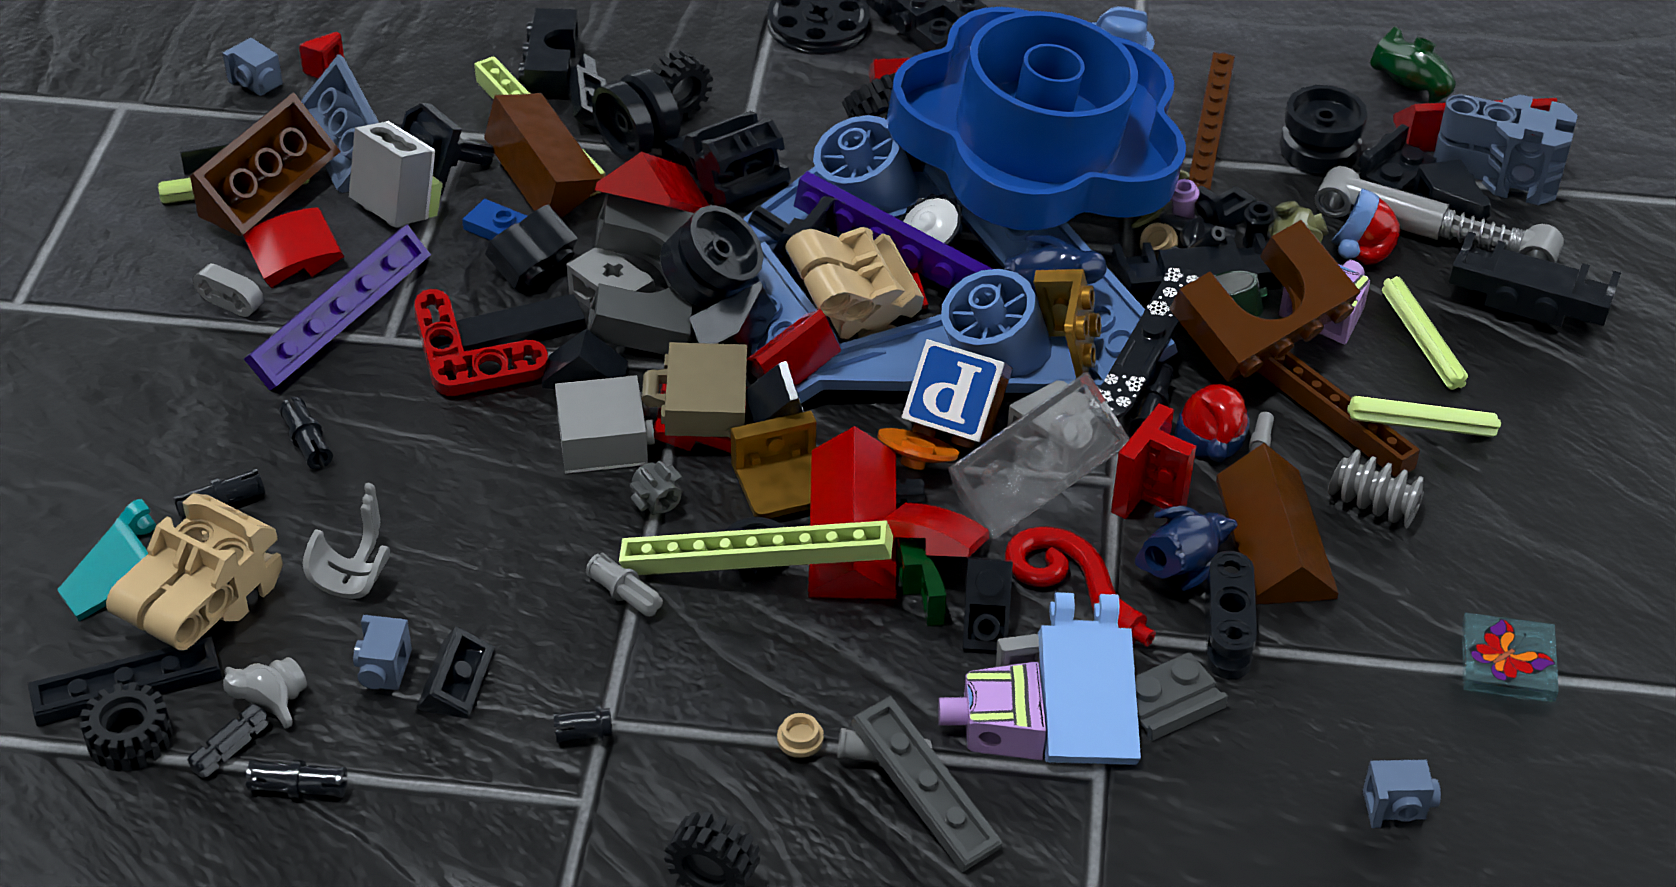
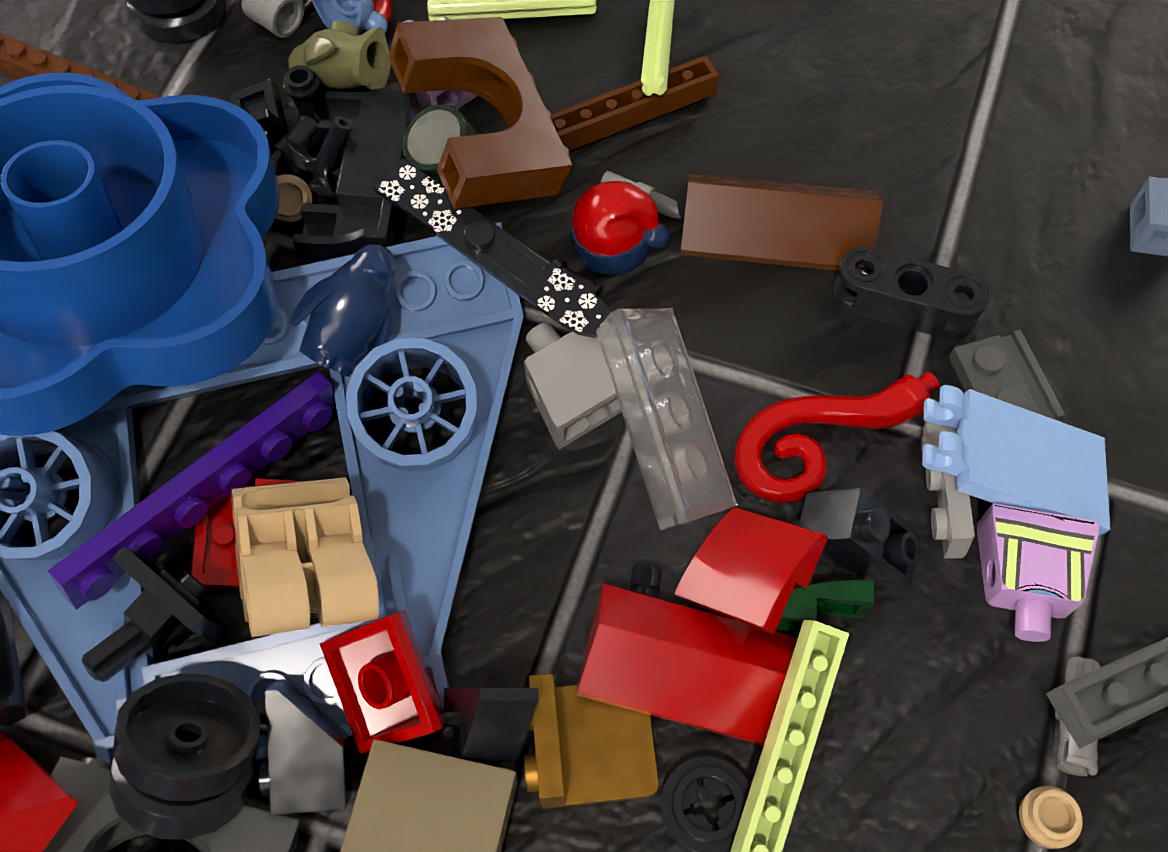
camera: 75 degrees left, 20 degrees up
(917, 447) = (582, 554): orange dish -> none
(937, 217) = (171, 434): white piece -> none
(956, 394) = (523, 482): piece -> none
(1069, 312) = (426, 295): pearl gold bracket -> none
(1153, 466) = (696, 296): red bracket -> none
(1184, 544) = (810, 305): dark blue animal -> none
(1377, 487) = (748, 108): light grey piece -> none
(1509, 657) = (976, 79): clear light blue tile -> none

